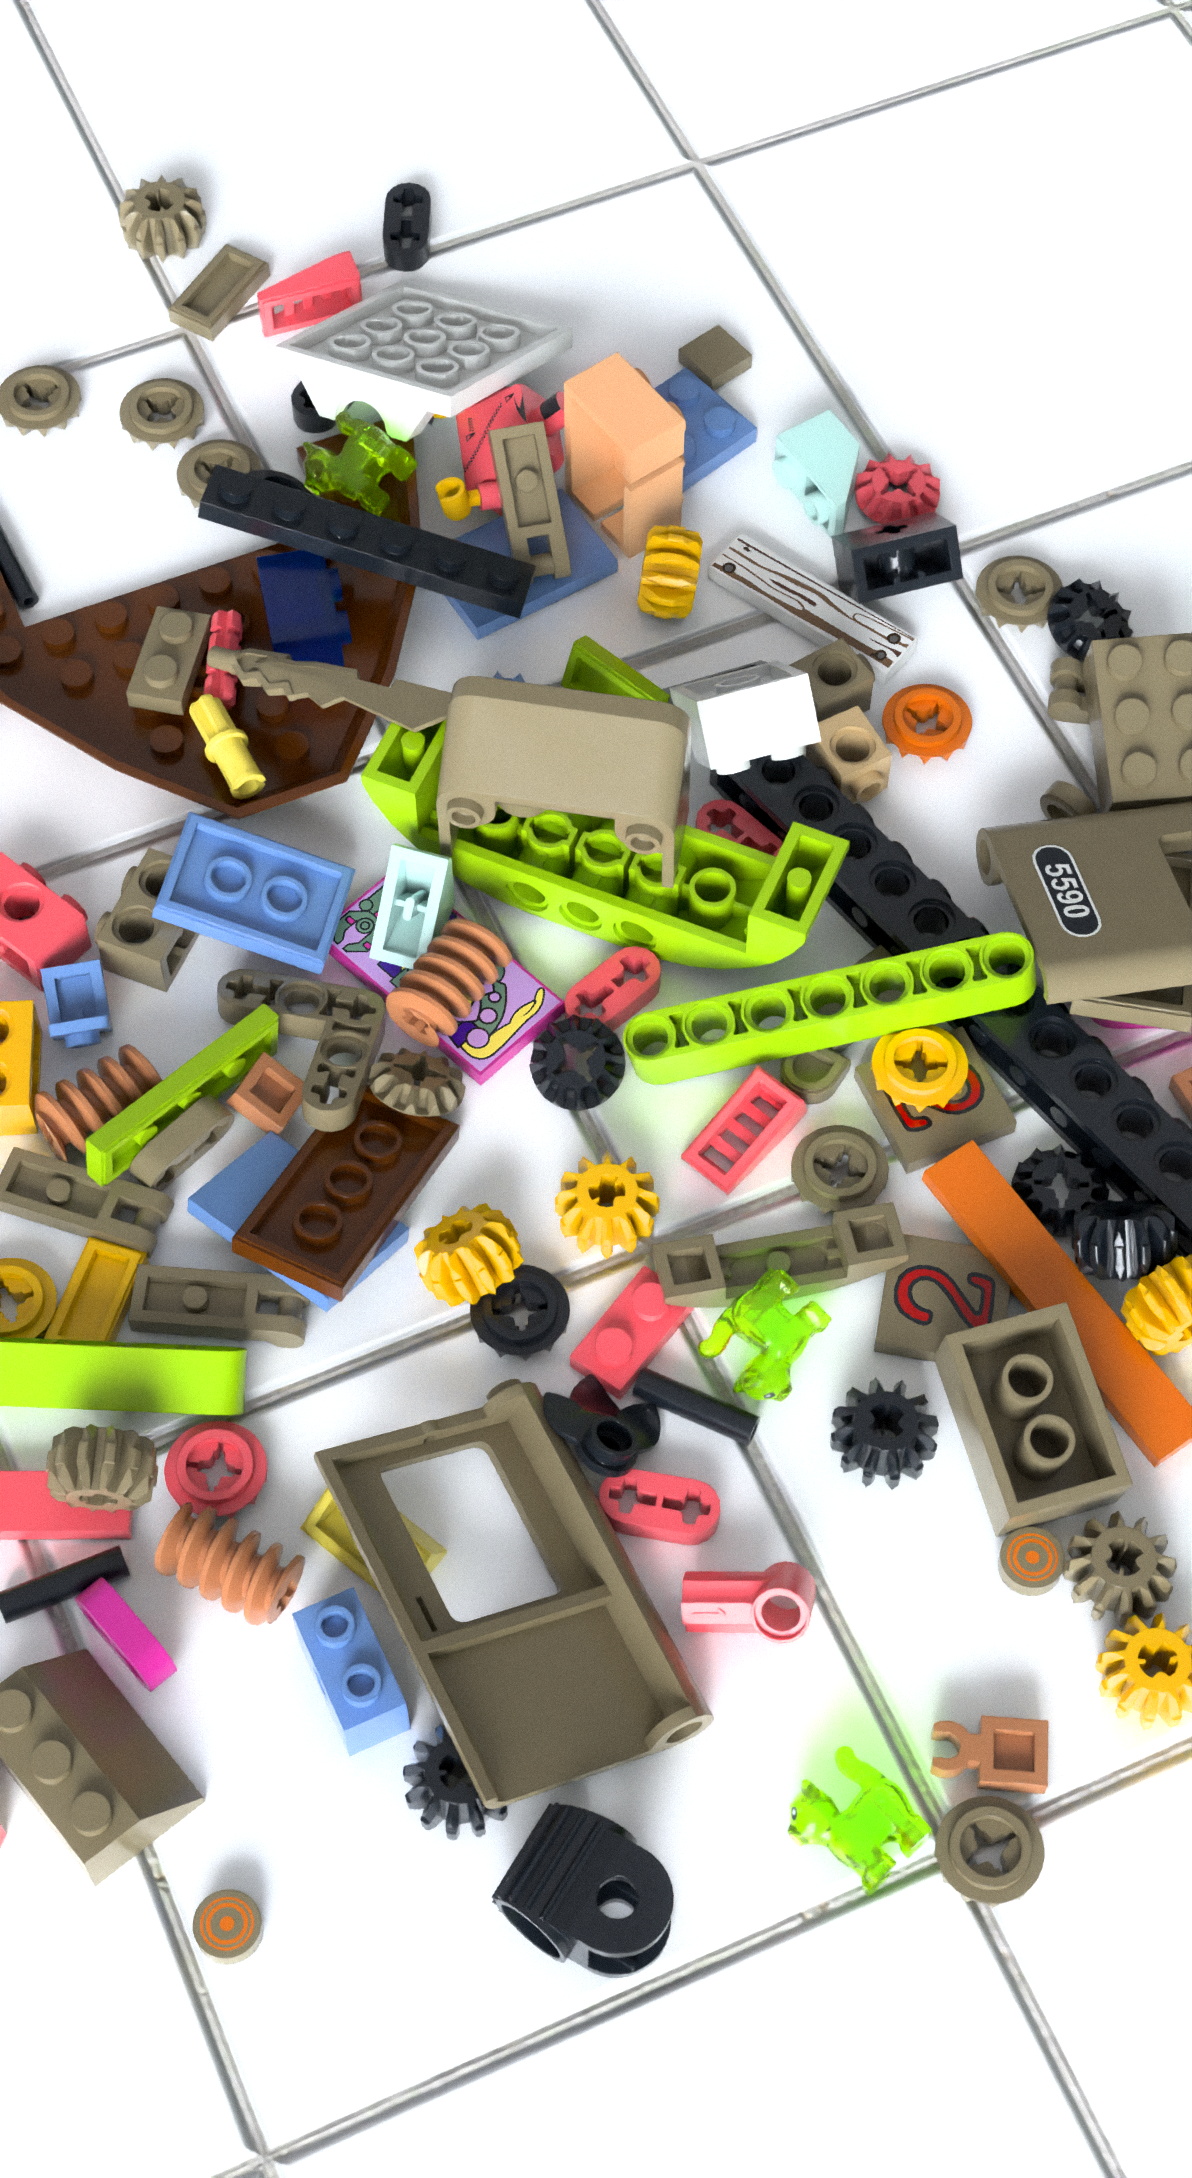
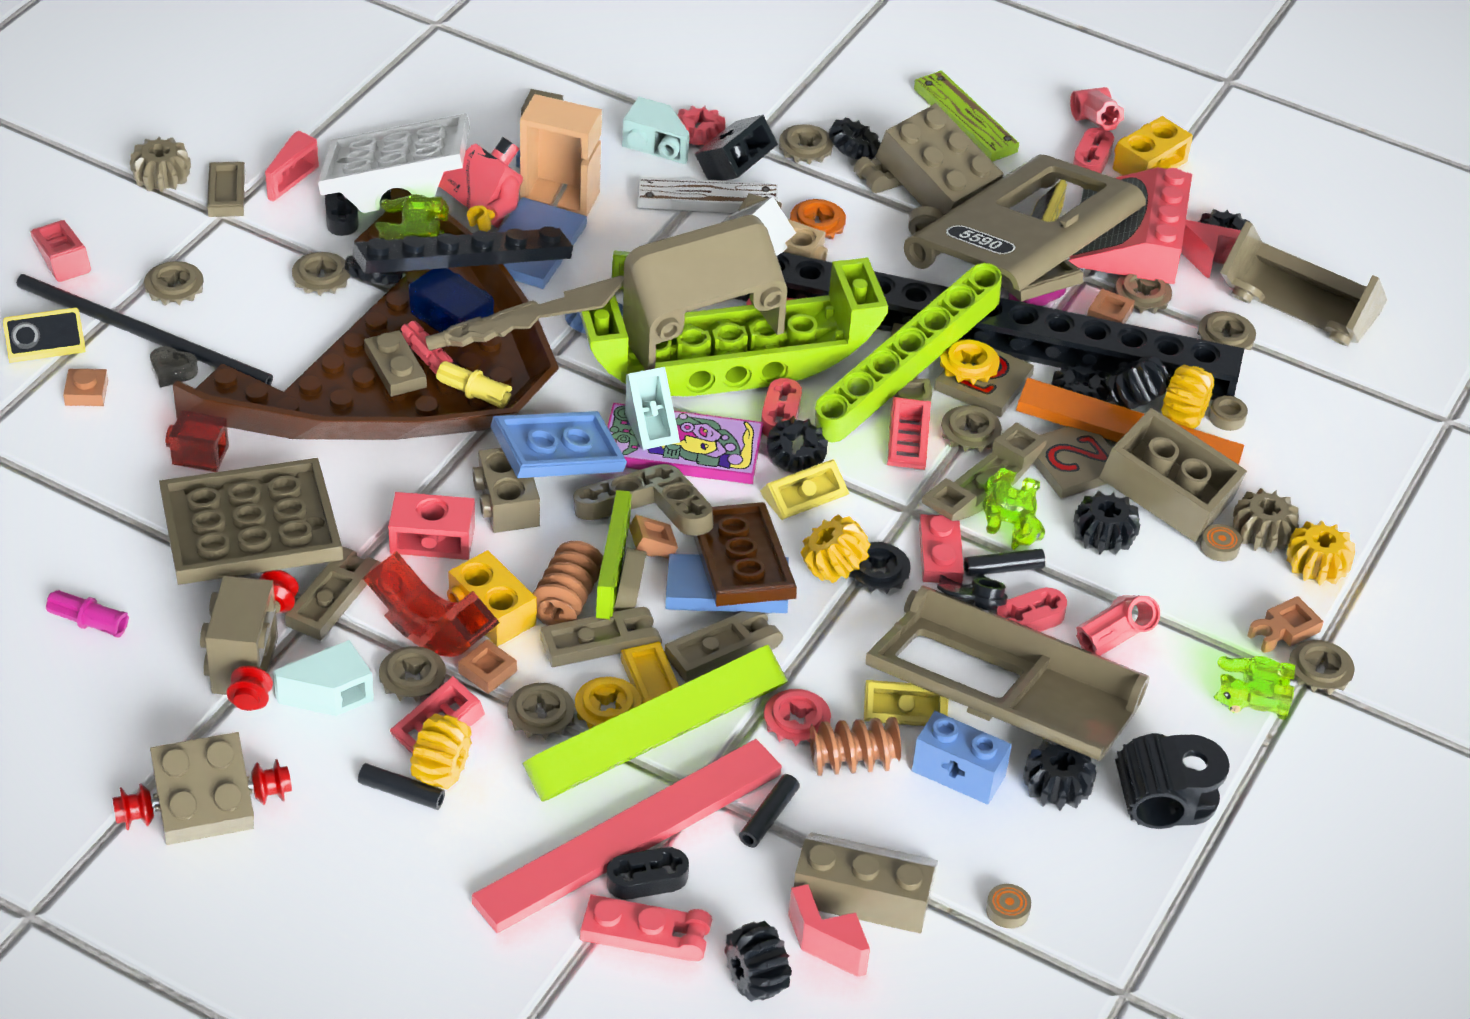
camera: 40 degrees left, 15 degrees down
(77, 1003) = (506, 545): medium blue bracket -> none
(102, 1468) = (754, 730): dark tan gear -> none
(126, 1634) = (829, 809): dark pink beam -> none
(161, 397) = (242, 254): dark tan gear -> none
(399, 227) = (306, 113): black beam -> none
(439, 1088) = (728, 492): dark tan gear -> none
(446, 979) = (704, 433): nougat piece -> none
(529, 496) = (527, 193): dark tan plate -> none
(532, 1136) = (805, 489): none -> light yellow slope
(607, 1183) = (877, 496): yellow gear -> none
(669, 572) = (627, 204): yellow gear -> none

